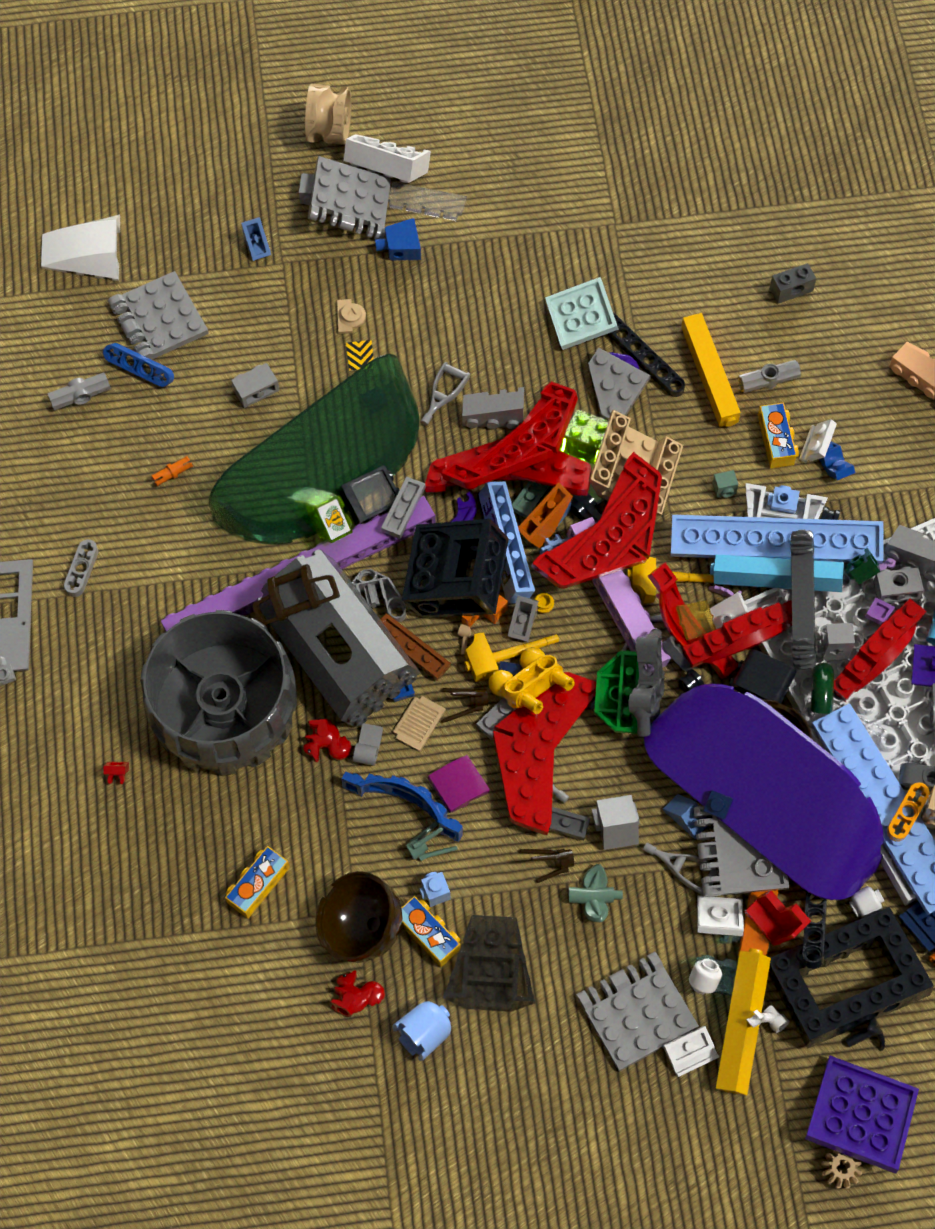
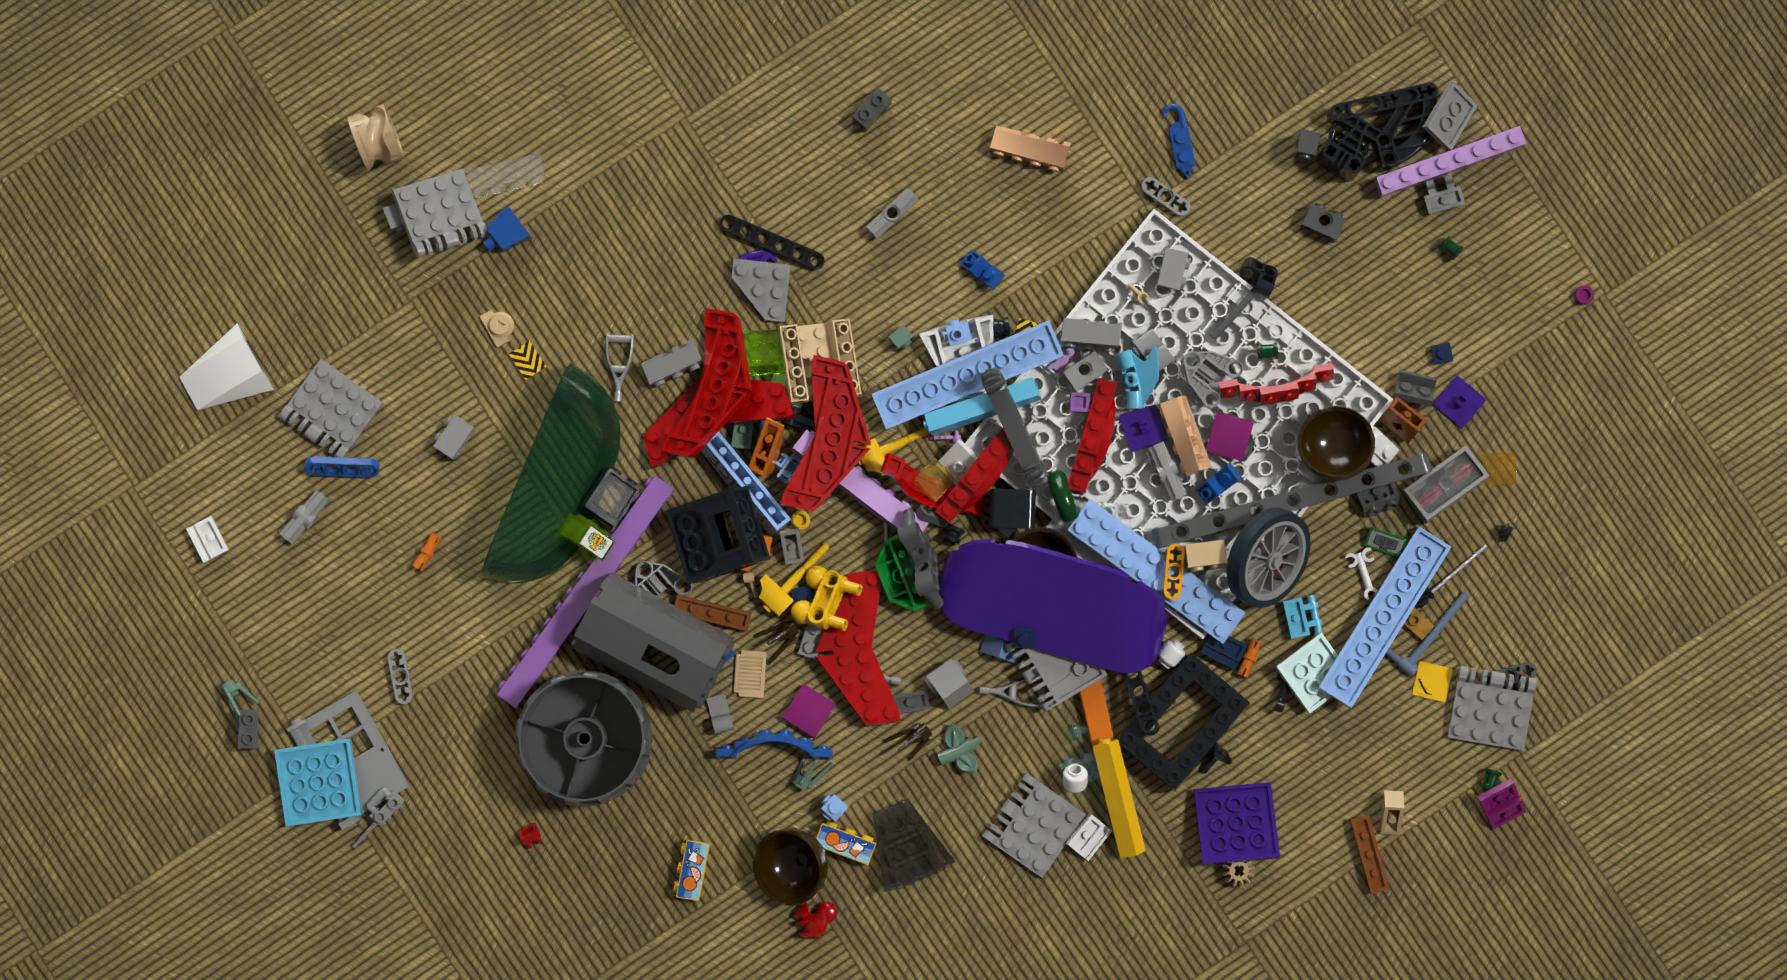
camera: 30 degrees left, 20 degrees up
(255, 238) = (377, 293): medium blue slope -> none
(313, 602) = (614, 622): dark brown bar -> none
(326, 736) = (684, 723): red animal -> none
(386, 158) = (451, 154): white wedge -> none
(403, 507) = (645, 497): light grey plate -> none
(423, 1028) = (881, 921): light blue cylinder -> none
(466, 510) = (696, 472): dark purple piece -> none
(581, 313) = (702, 230): light aqua plate -> none
(710, 370) = (839, 232): yellow brick -> none
(720, 916) = (1064, 721): white plate -> none
(771, 1015) = (1138, 780): white brick -> none
(776, 920) = (1108, 707): red panel -> none
(777, 435) = (924, 268): brick -> none
(818, 441) = (961, 259): white plate -> none
(836, 641) = (1056, 451): light grey brick -> none
(863, 567) = (1050, 371): dark green brick -> none

